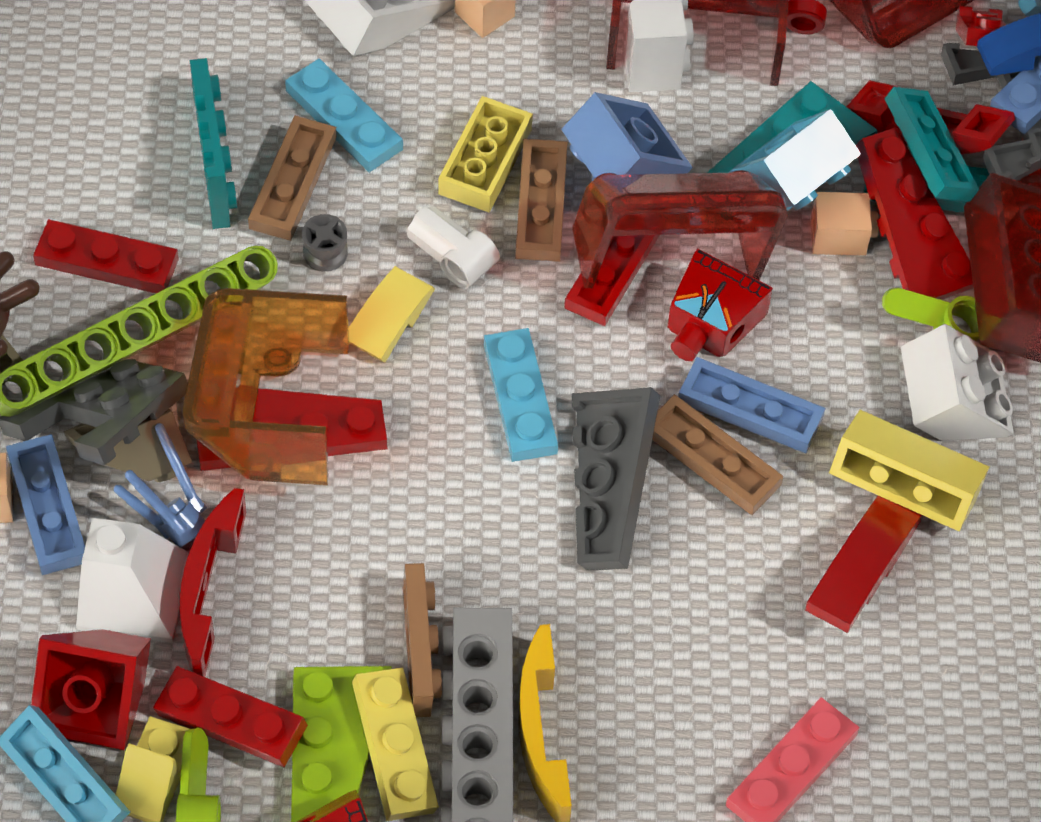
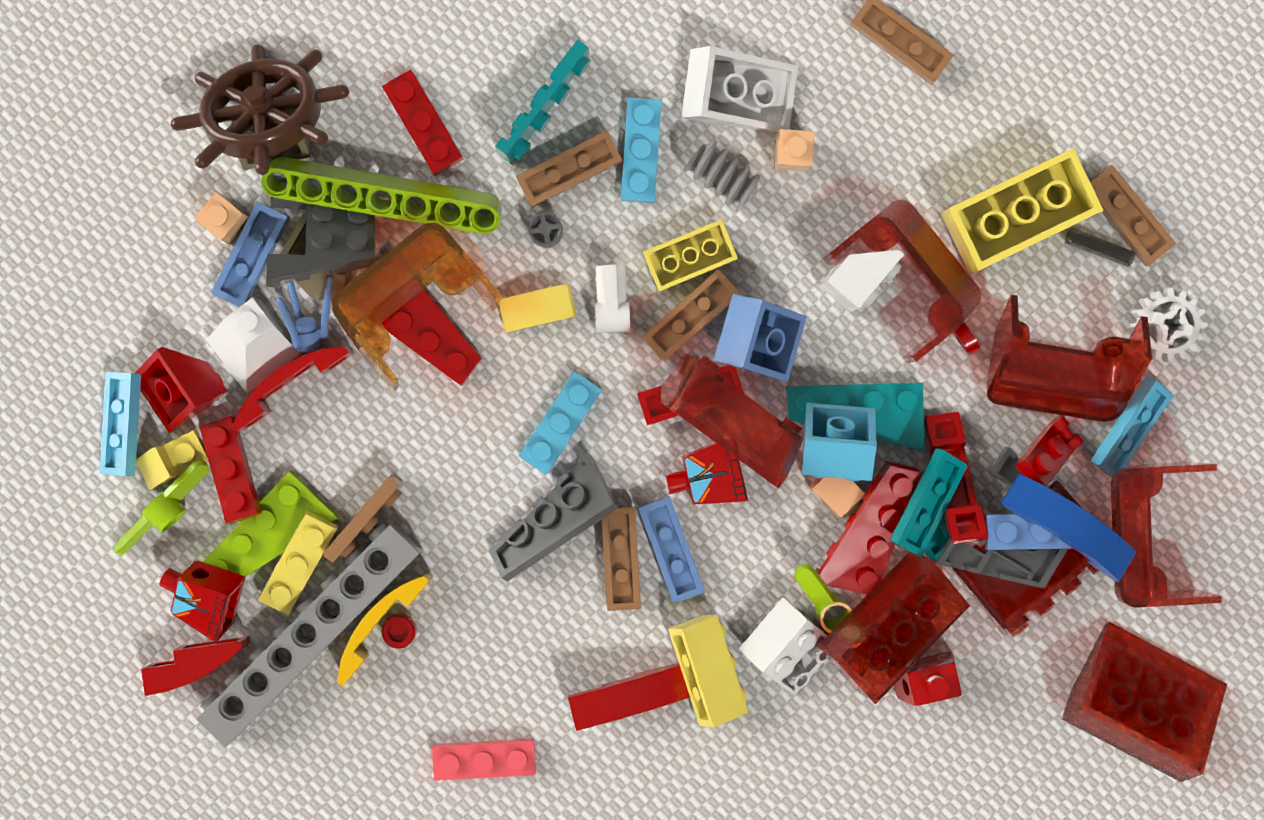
camera: 50 degrees right, 30 degrees up
(443, 63) = (723, 174): none -> light grey piece
(569, 723) = (399, 631): none -> red tile

